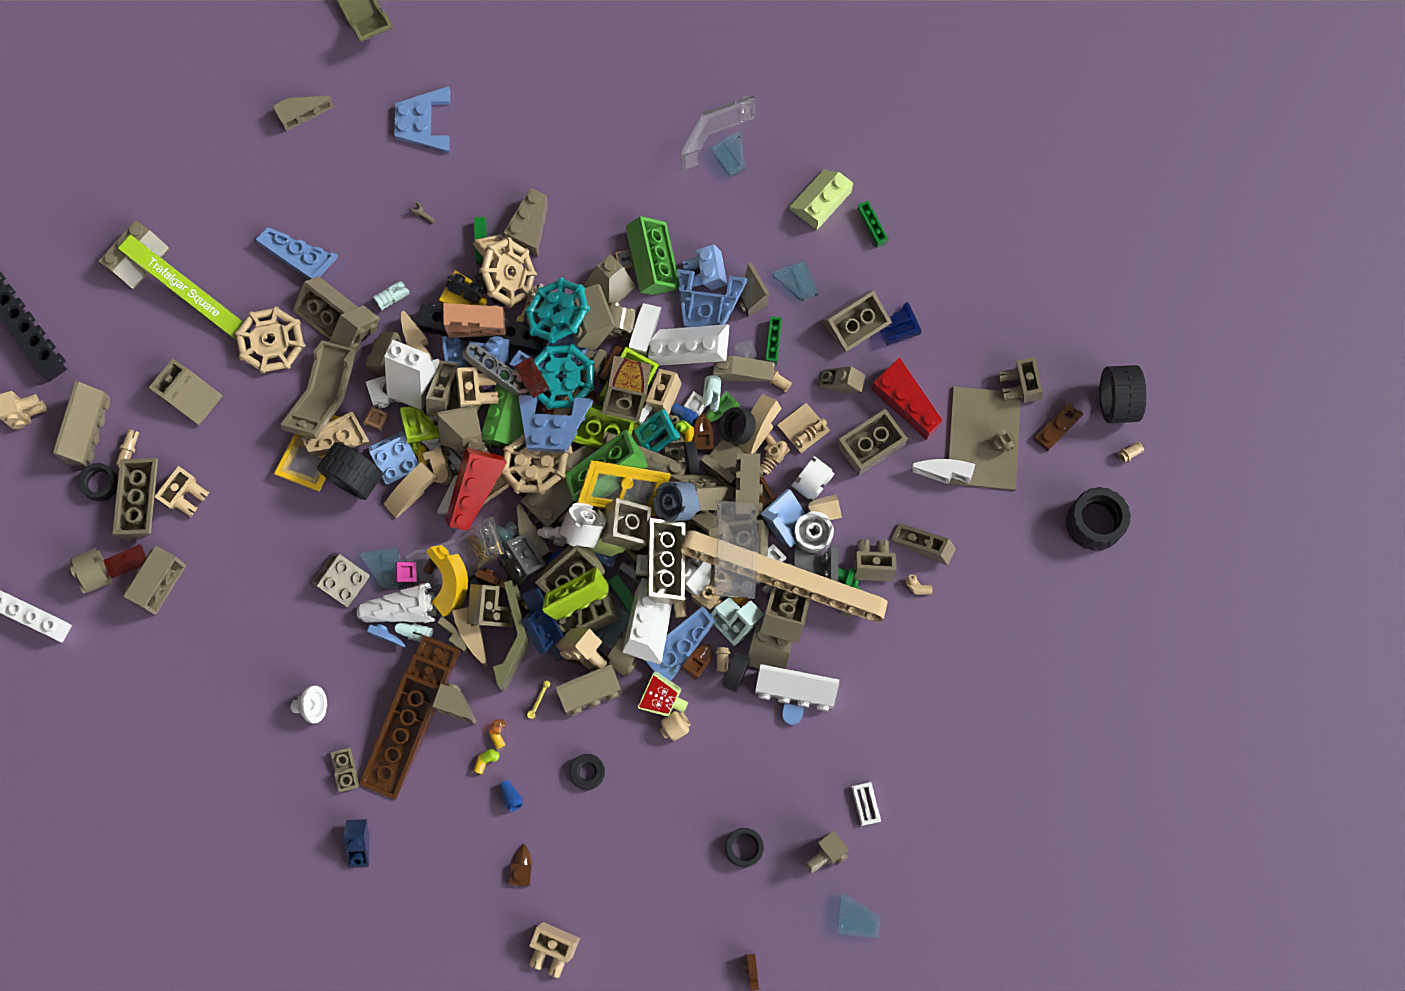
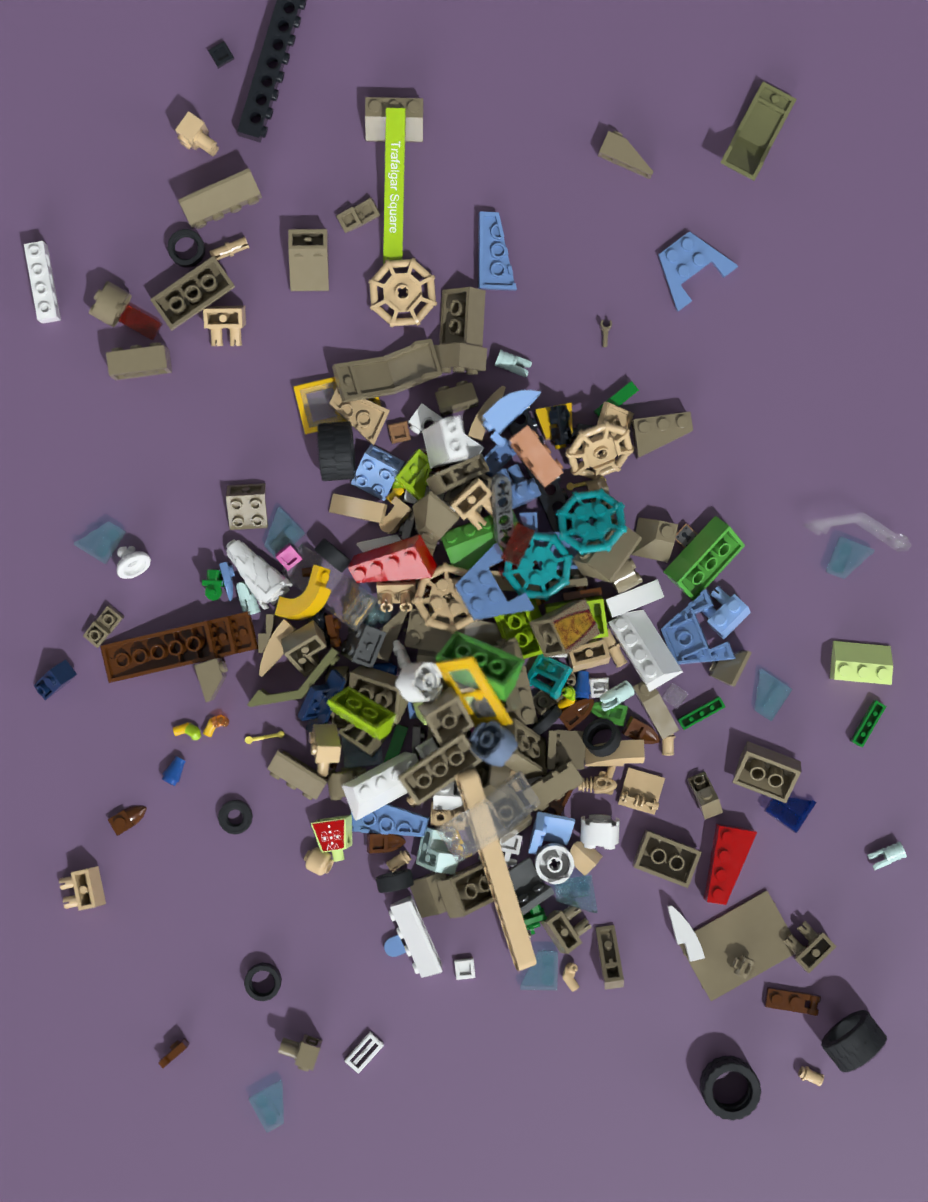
camera: 55 degrees right, 15 degrees up
(185, 333) = (359, 215): none -> dark tan slope
(275, 719) = (102, 542): none -> clear light blue wing
(380, 648) = (214, 584): none -> green hips
(421, 316) = (506, 411): none -> light blue piece
(431, 534) = (332, 555): none -> black tyre
(499, 503) = (396, 592): none -> tan brick
(683, 373) = (614, 650): none -> tan pin
(749, 396) = (640, 731): none -> reddish brown plate
(851, 532) = (577, 893): none -> clear light blue wing
(852, 669) = (464, 968): none -> white tile
(900, 606) = (543, 974): none -> clear light blue wing
(988, 275) = (890, 853): none -> light aqua hinge

